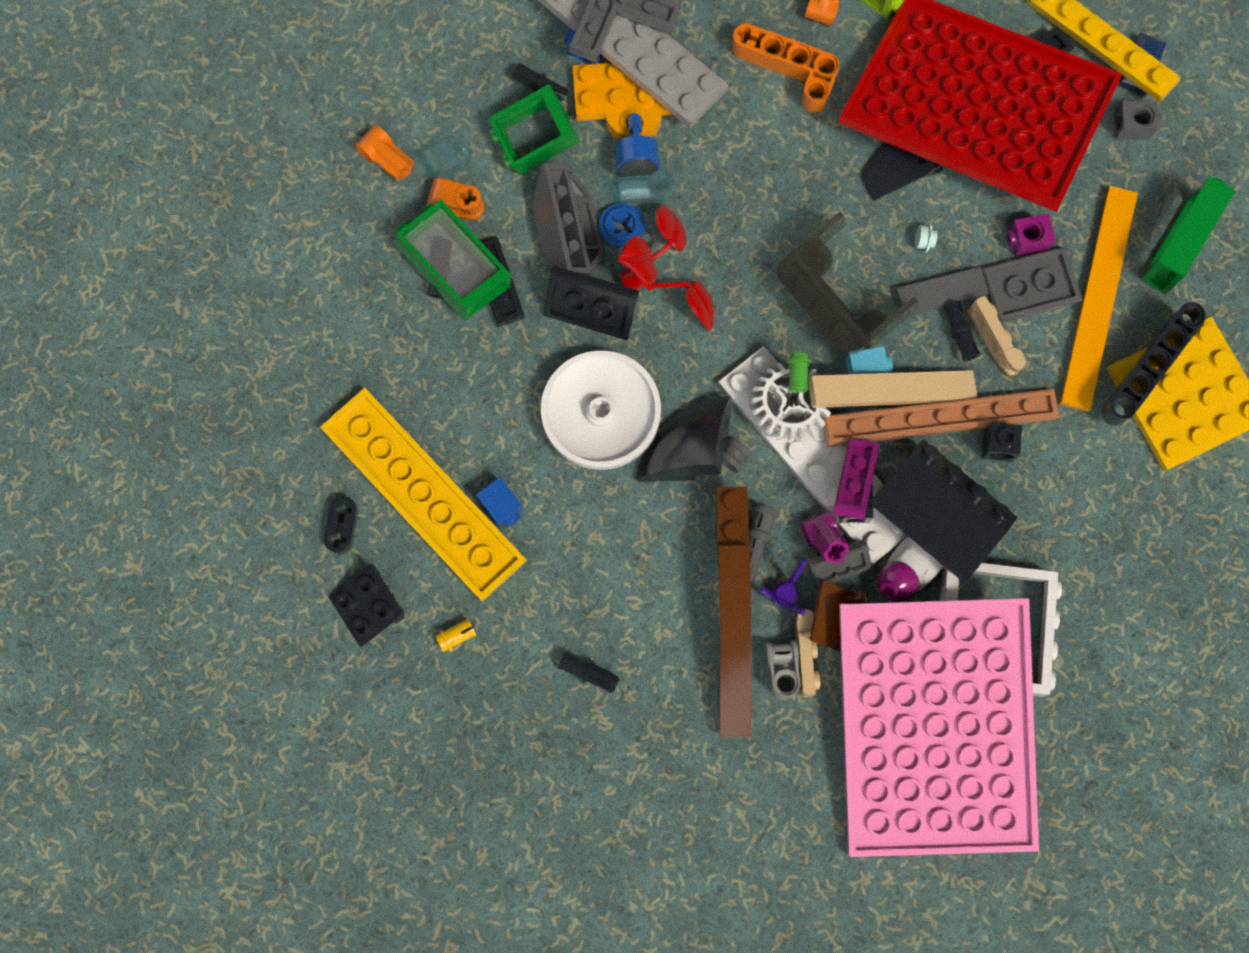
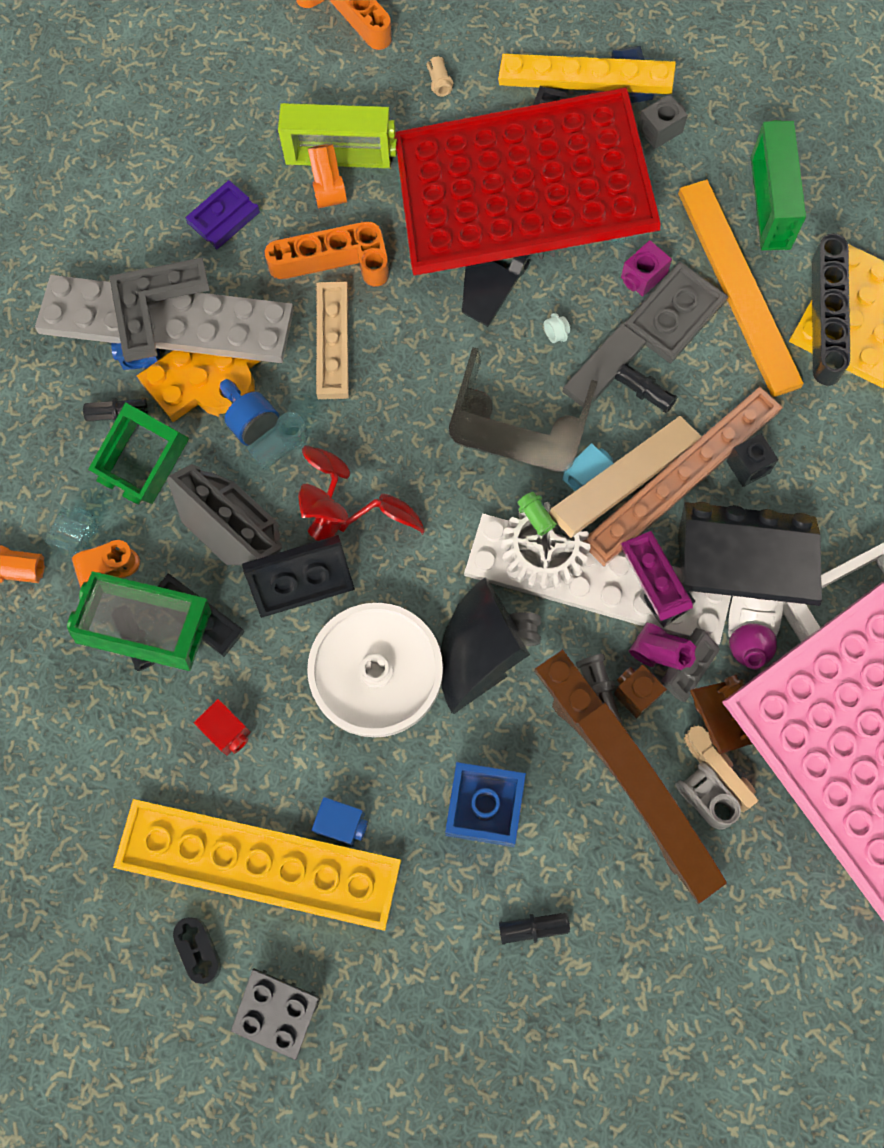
camera: 30 degrees left, 5 degrees down
(453, 636) = (382, 982): yellow pin -> none
(461, 379) = (223, 728): none -> red brick
(613, 561) = (485, 804): none -> blue brick
(621, 213) = (269, 480): blue gear -> none
(742, 133) = (332, 341): none -> tan plate
(785, 555) = (638, 690): none -> reddish brown brick
(785, 594) = (662, 726): dark purple plant -> none
(996, 337) = (679, 374): tan hinge -> none

